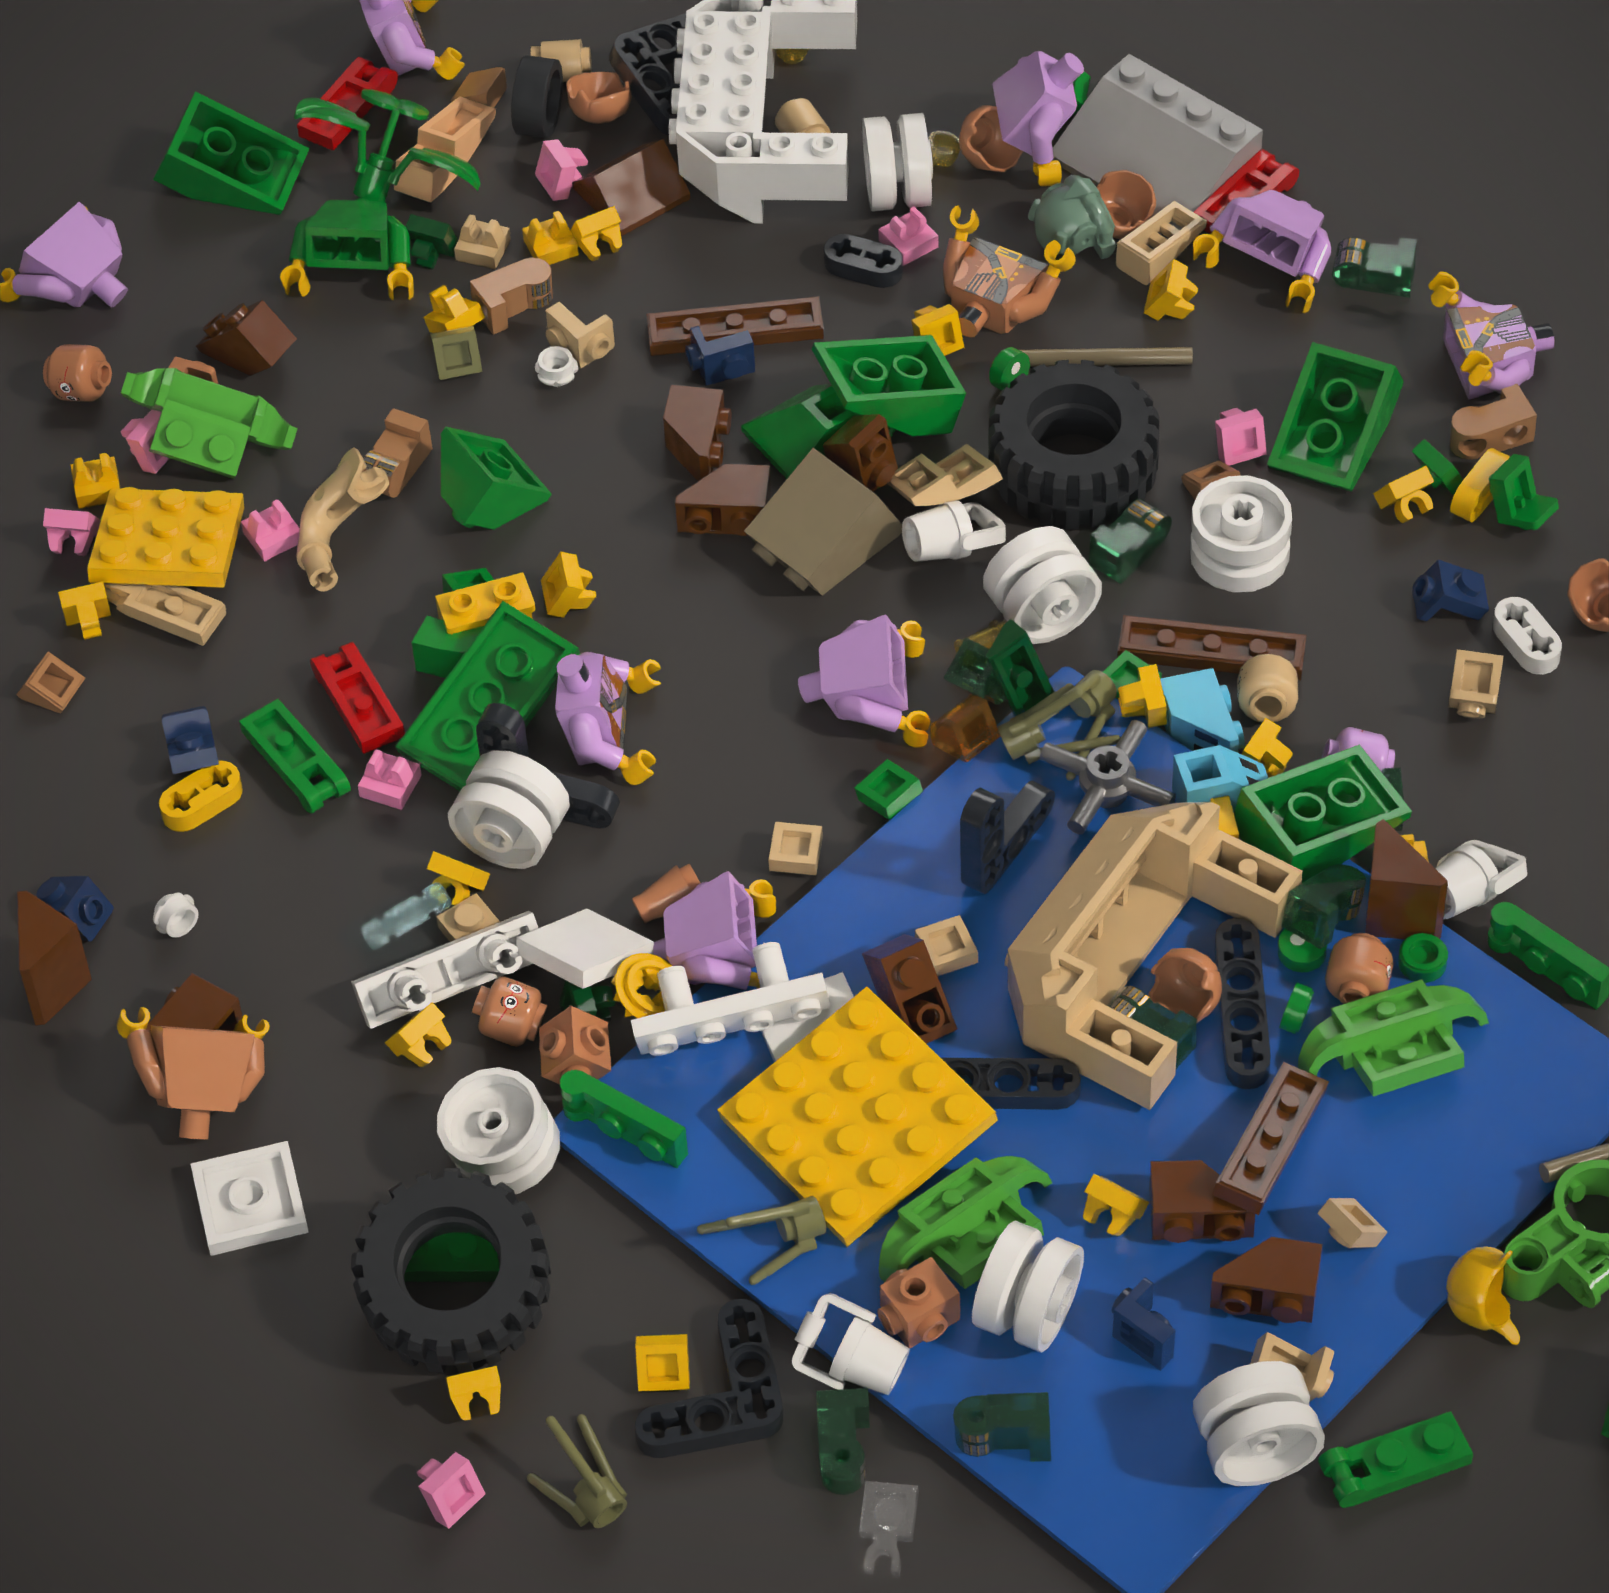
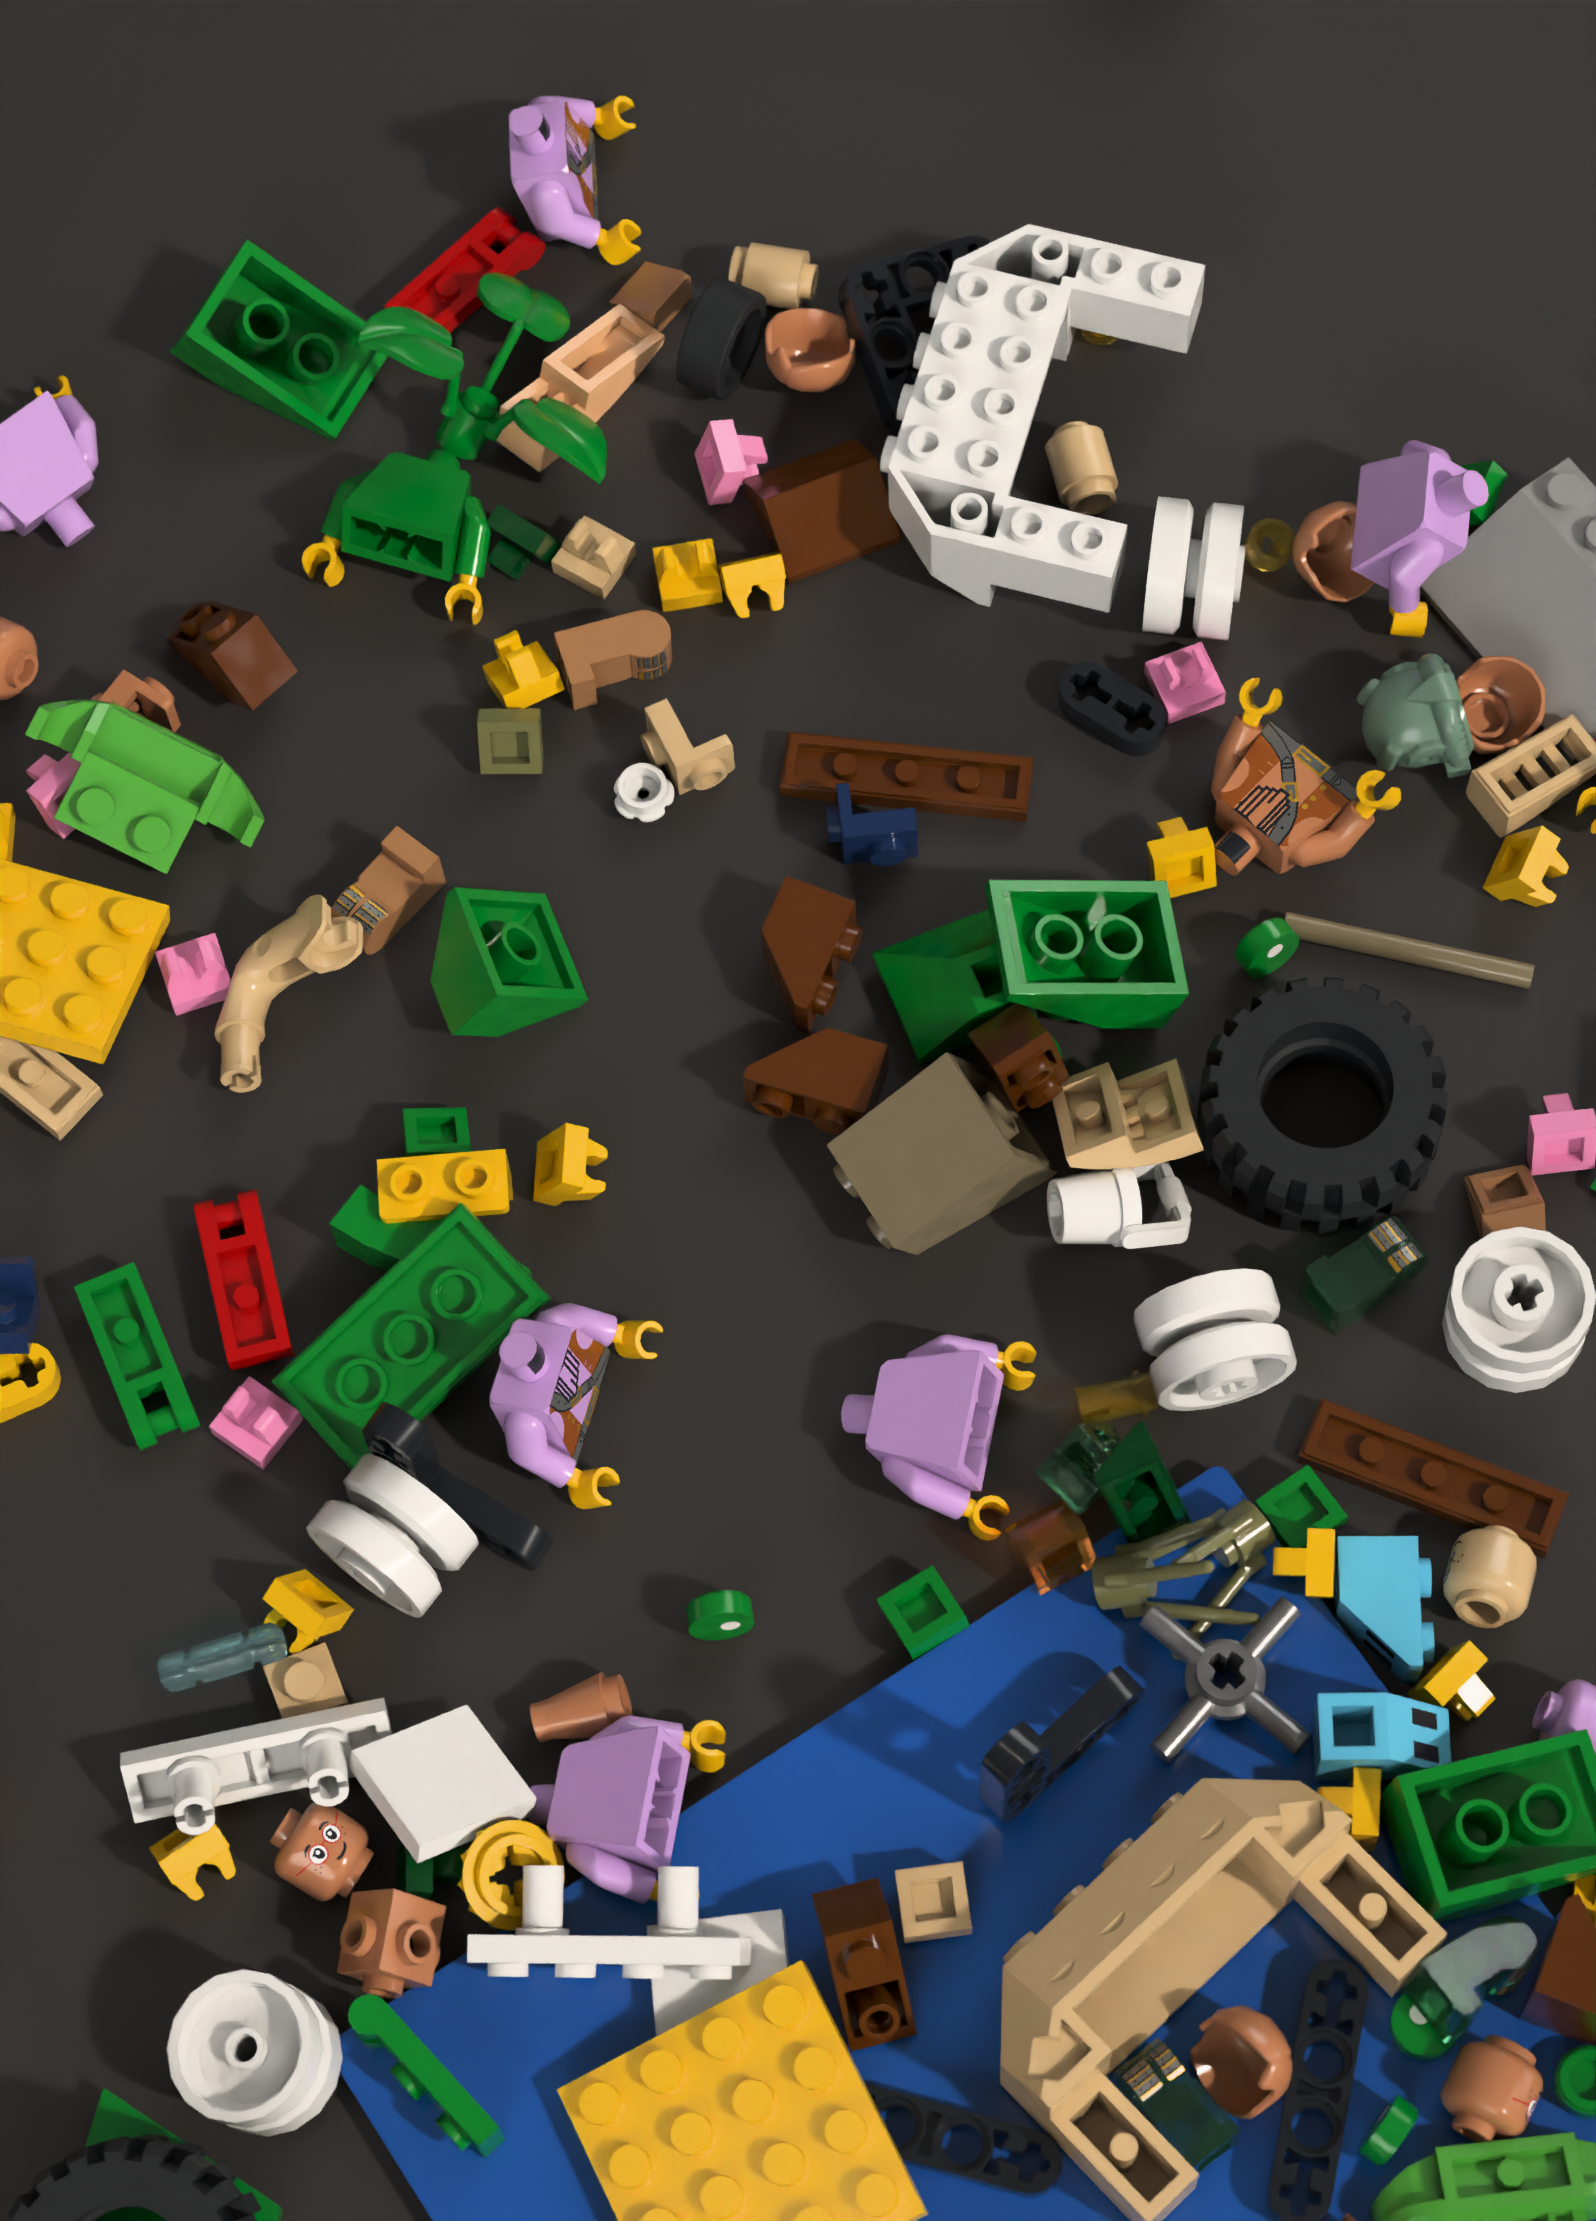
camera: 15 degrees right, 15 degrees up
(749, 819) = (719, 1615): none -> green tile
(795, 848) = (772, 1677): tan plate -> none

